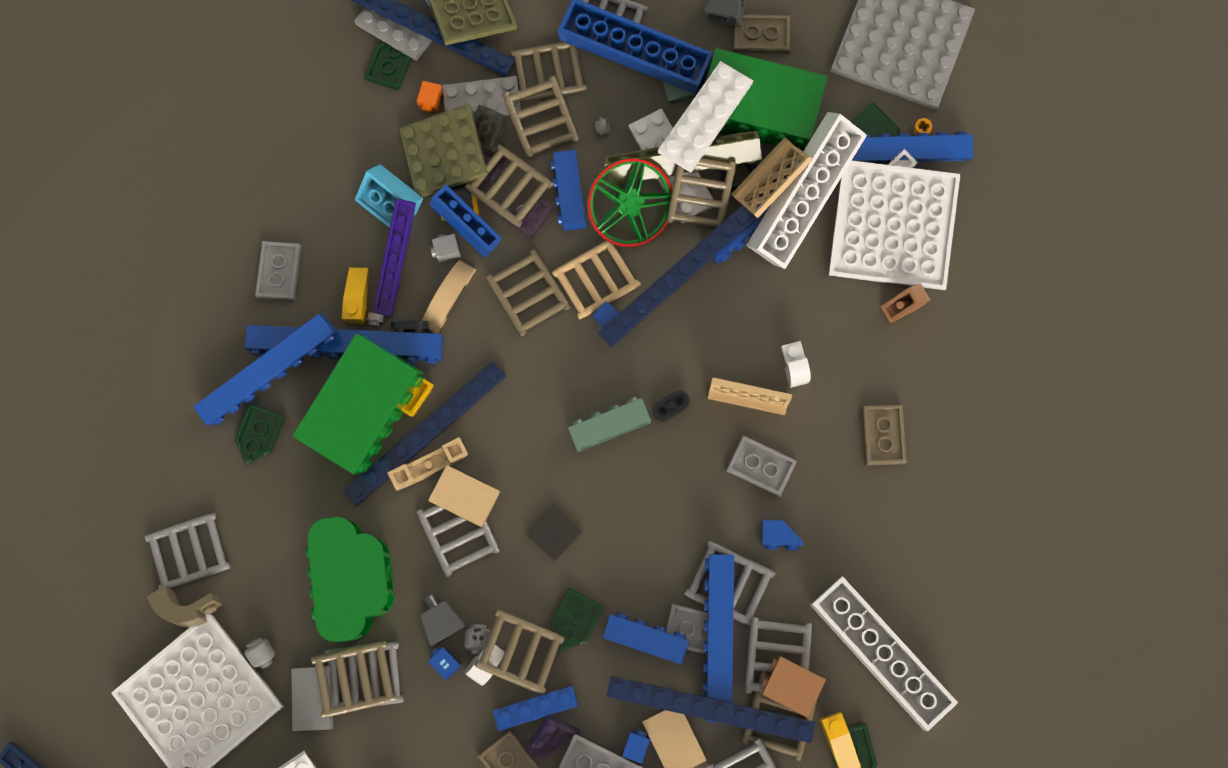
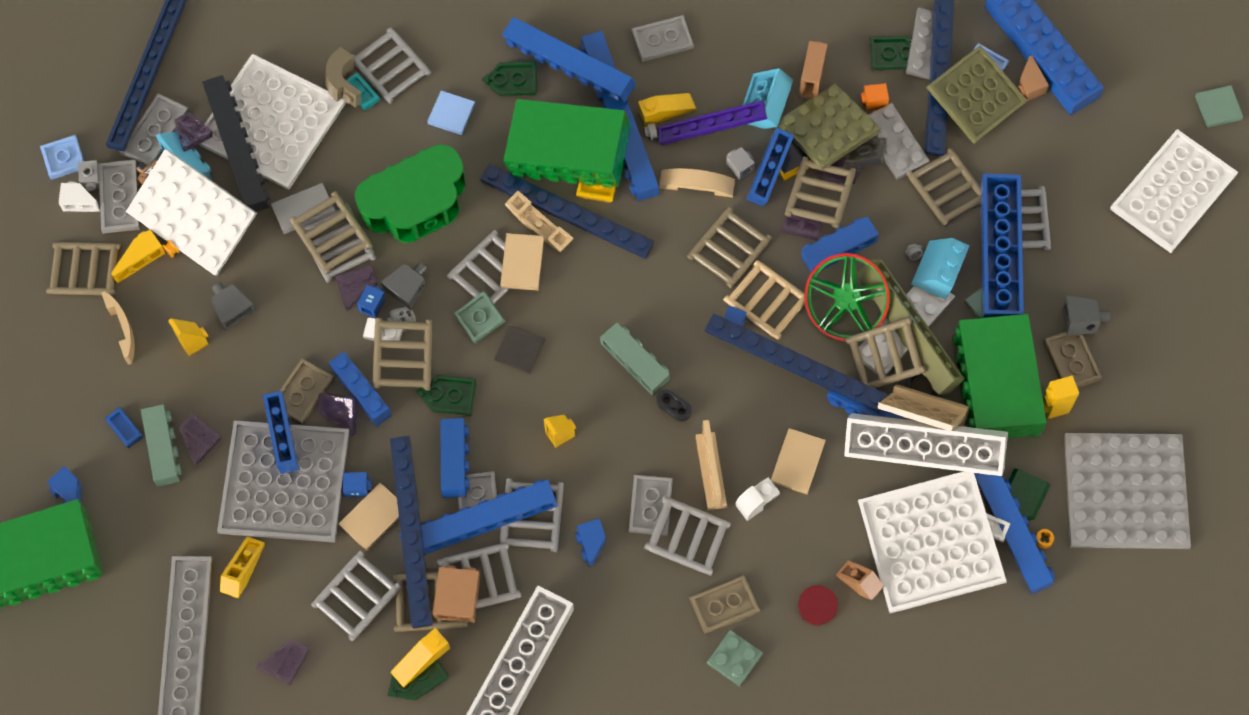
camera: 65 degrees right, 10 degrees down
(210, 746) = (235, 144): none -> black brick
(215, 586) = (368, 96): none -> teal plate
(260, 652) = (326, 152): light grey head -> none
(269, 508) = (451, 112): none -> light blue tile
(379, 141) = (813, 69): none -> medium nougat brick
(402, 326) = (658, 165): black plate -> none
(418, 673) = (353, 284): none -> clear purple wing
(505, 559) = (479, 317): none -> sand green tile
(557, 101) = (907, 217): dark tan bar -> none
(630, 107) = (940, 266): none -> medium azure slope
(656, 523) = (559, 429): none -> yellow slope
(705, 116) = (954, 326): white plate -> none
(768, 313) = (798, 461): none -> tan tile
(805, 51) = (1060, 397): none -> yellow brick
(818, 465) = (704, 519): none -> light grey bar
(914, 350) = (817, 605): none -> dark red tile
(938, 445) = (734, 658): none -> sand green plate

